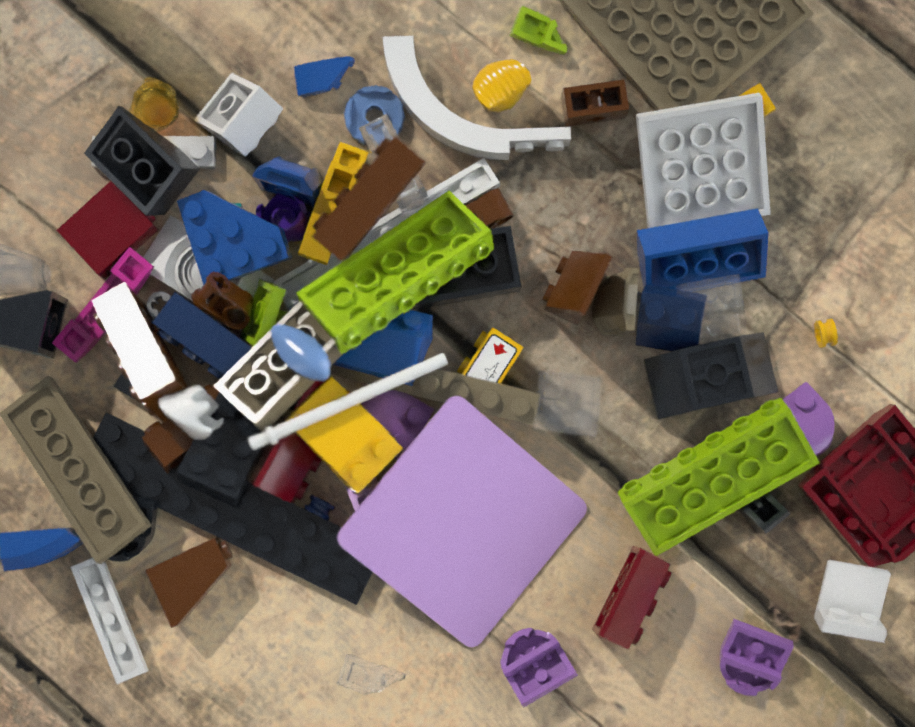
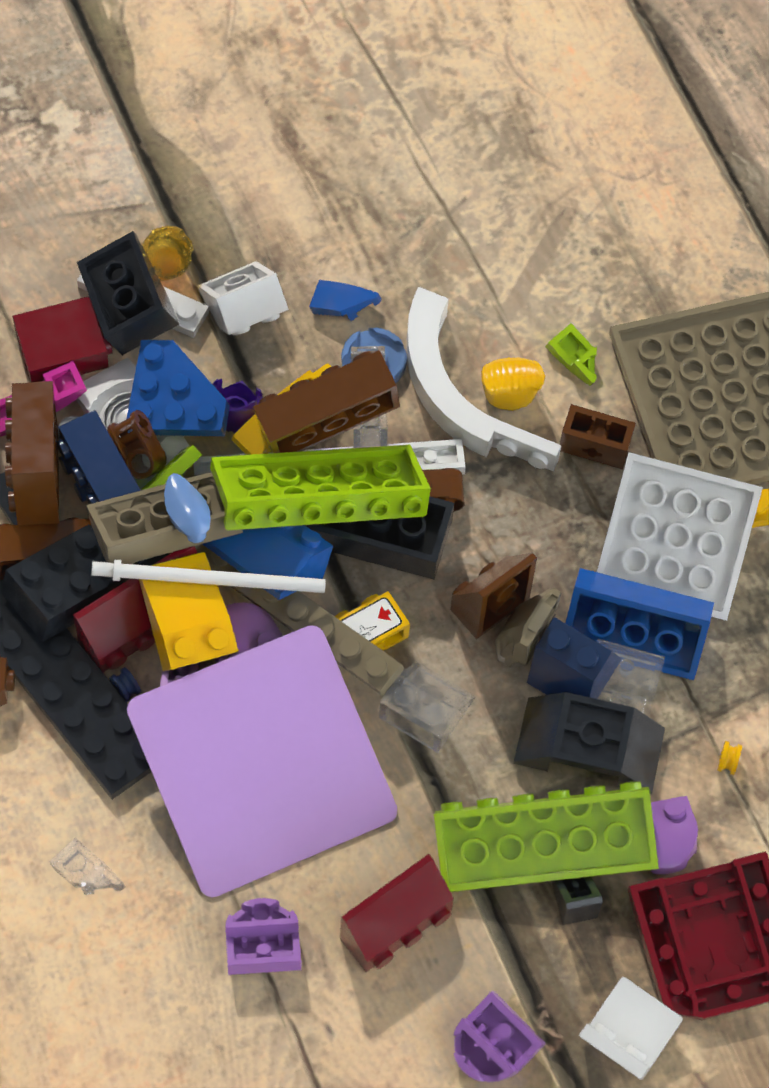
camera: 25 degrees right, 20 degrees down
(192, 411) = (52, 518): white hair -> none
(289, 179) = (255, 366): blue slope -> none

